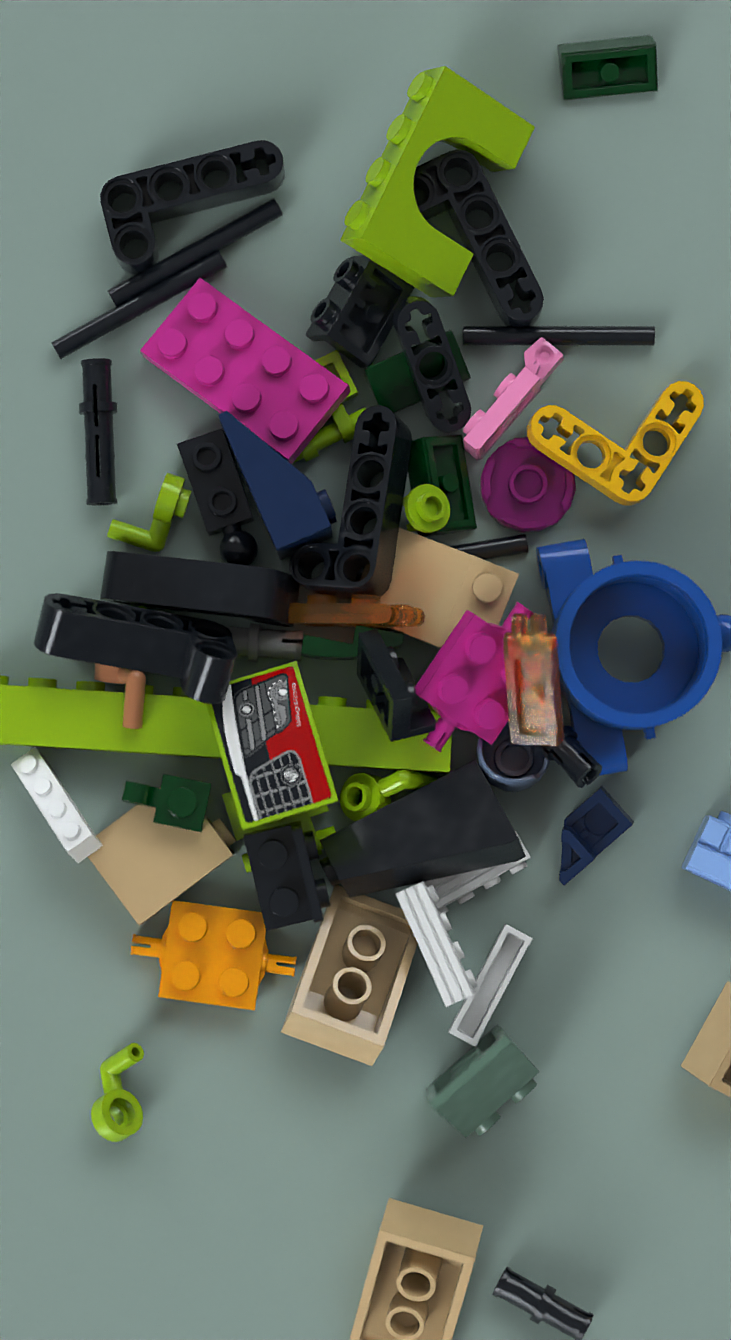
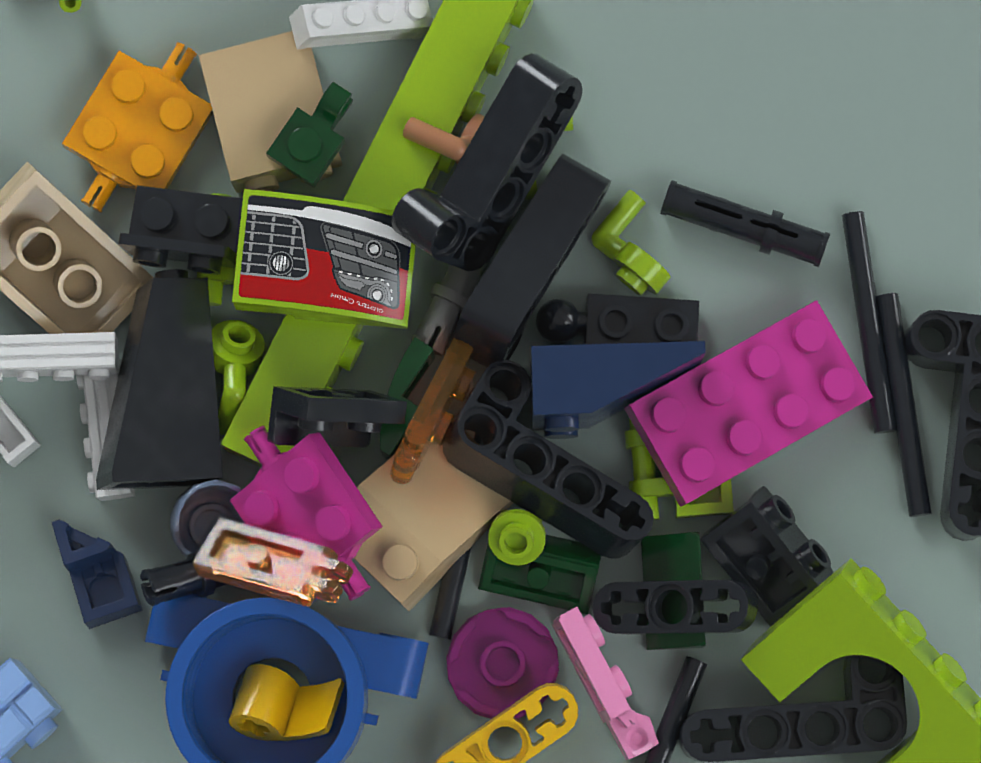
camera: 115 degrees right, 5 degrees down
(638, 637) = (278, 709): none -> yellow panel

